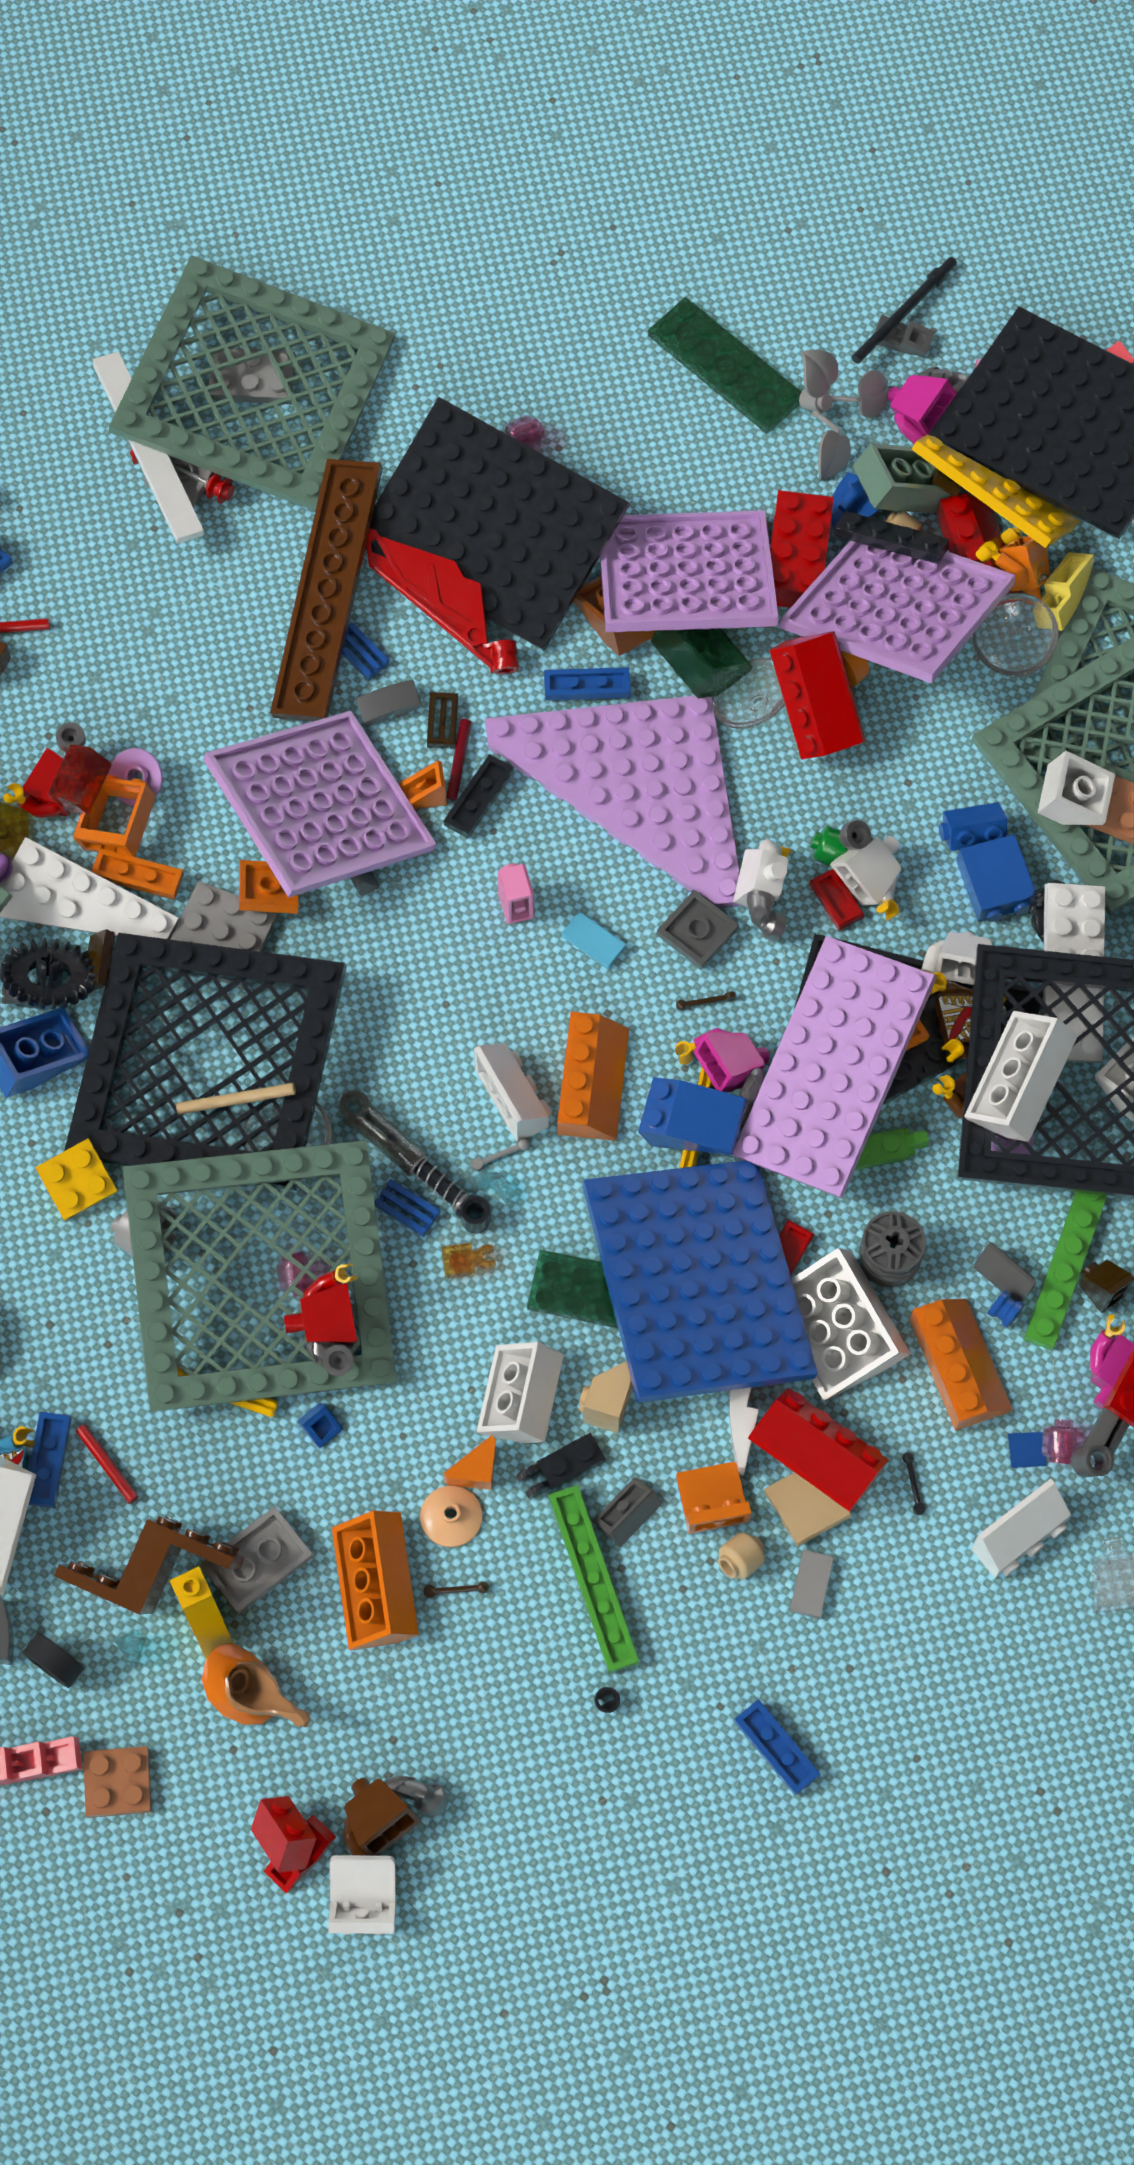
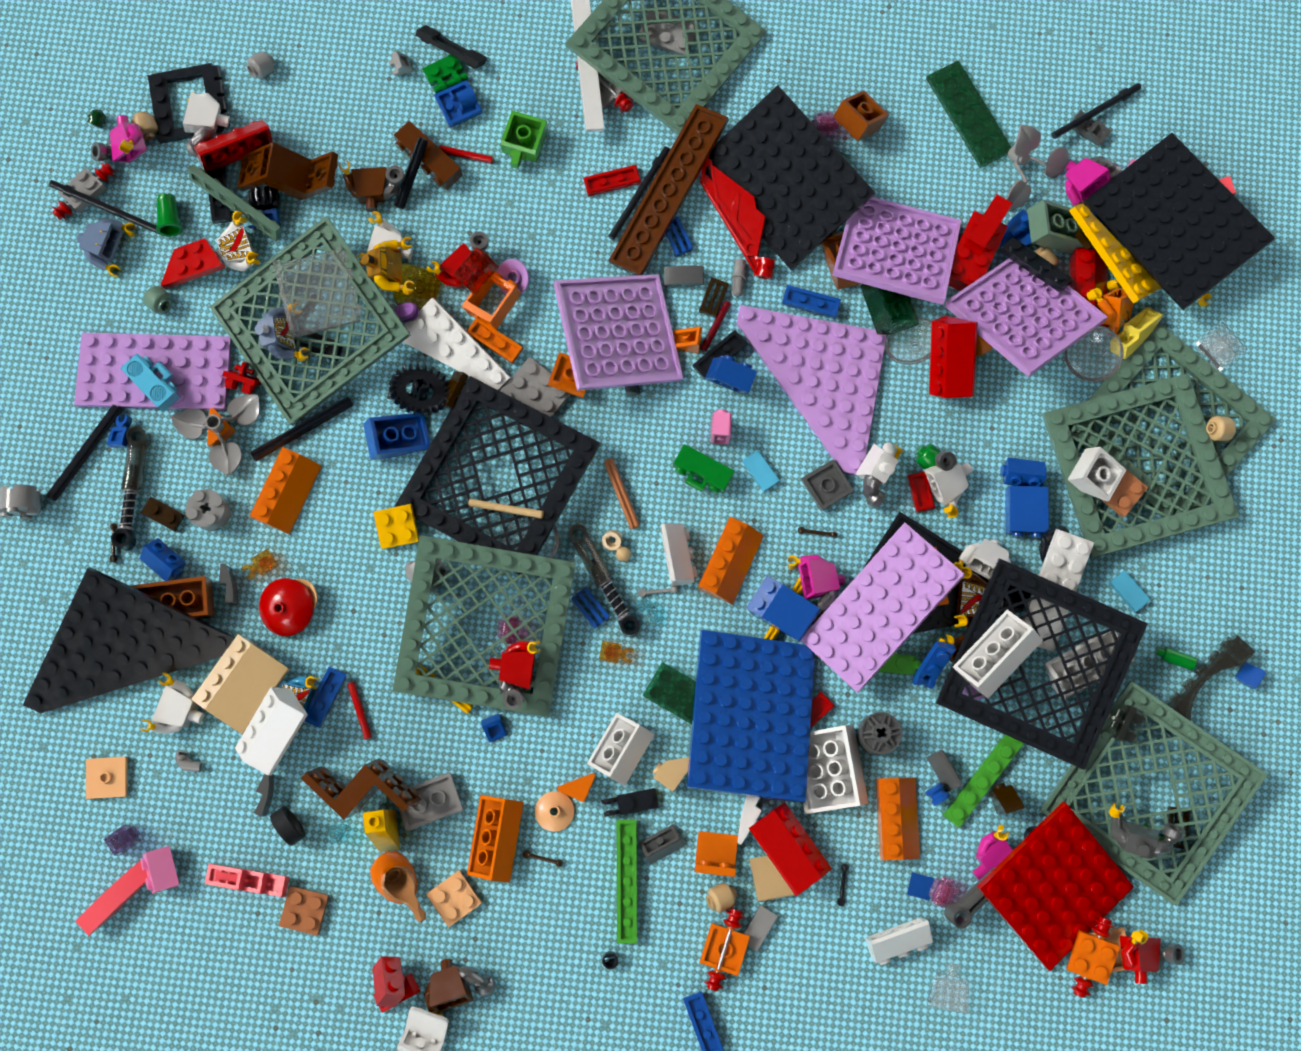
camera: 20 degrees right, 10 degrees up
(87, 577) = (523, 138): none -> bright green hinge
(237, 602) = (612, 180): none -> red tile
(296, 562) = (656, 164): none -> black bar
(341, 1689) = (454, 898): none -> light nougat plate
(399, 1033) = (621, 493): none -> nougat axle
(429, 1116) = (622, 553): none -> tan plate
(469, 681) = (738, 277): none -> light grey axle
(505, 814) = (730, 374): none -> blue brick
(509, 960) = (704, 468): none -> green piece
(571, 408) = (860, 115): none -> dark orange brick
(771, 1628) = (724, 949): none -> orange plate
(805, 498) = (989, 222): none -> red tile
(936, 1126) = (933, 664): none -> blue plate

